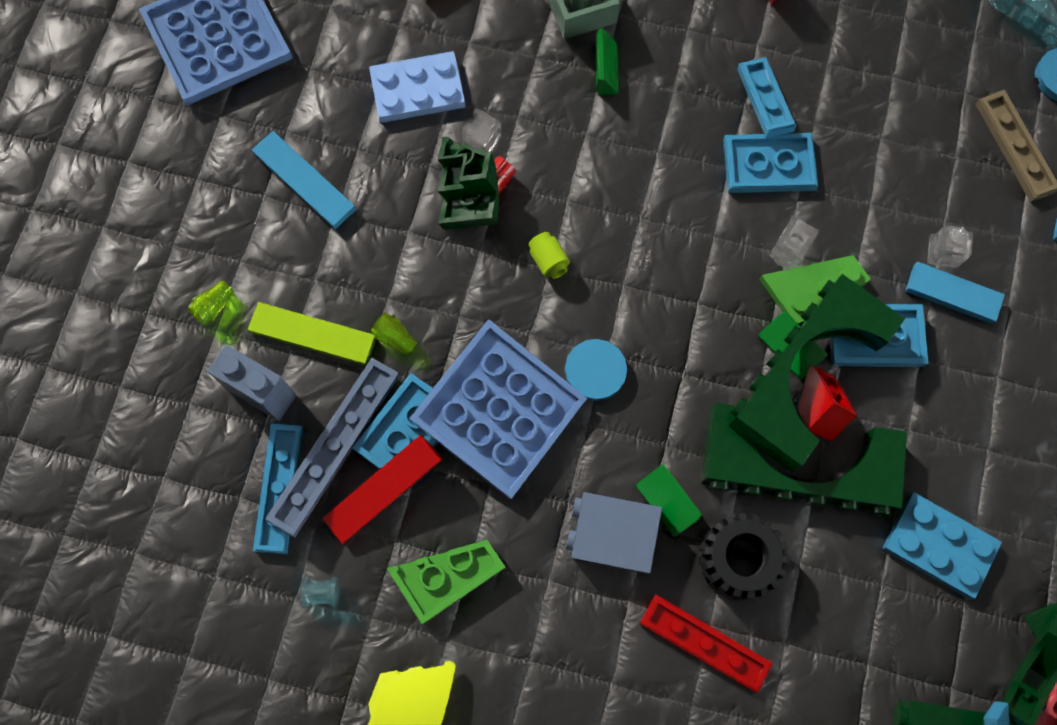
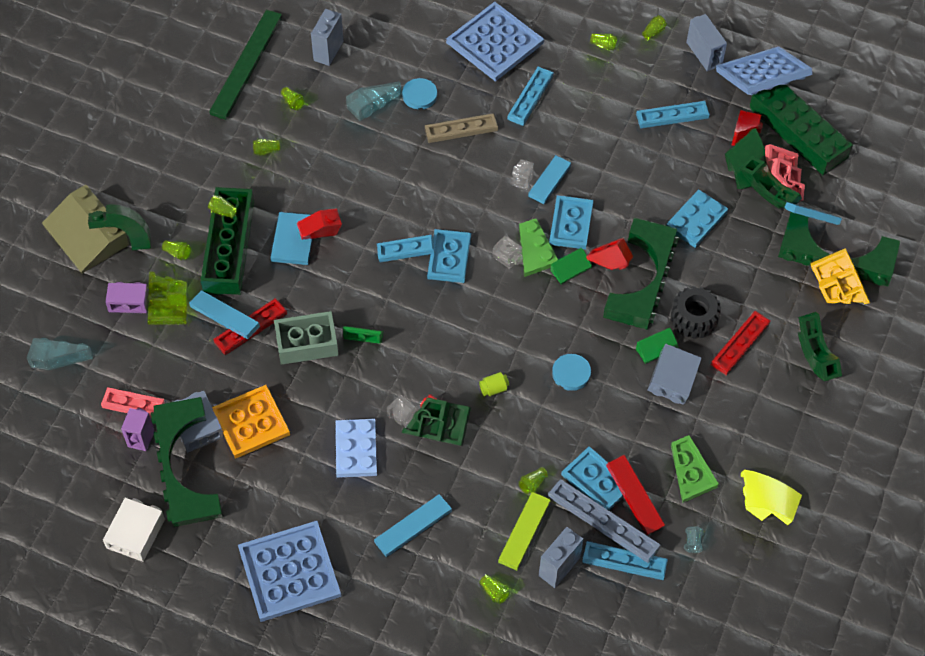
camera: 80 degrees left, 15 degrees down
(498, 409) = (592, 424): medium blue plate -> none
(769, 413) = (615, 279): dark green arch -> none

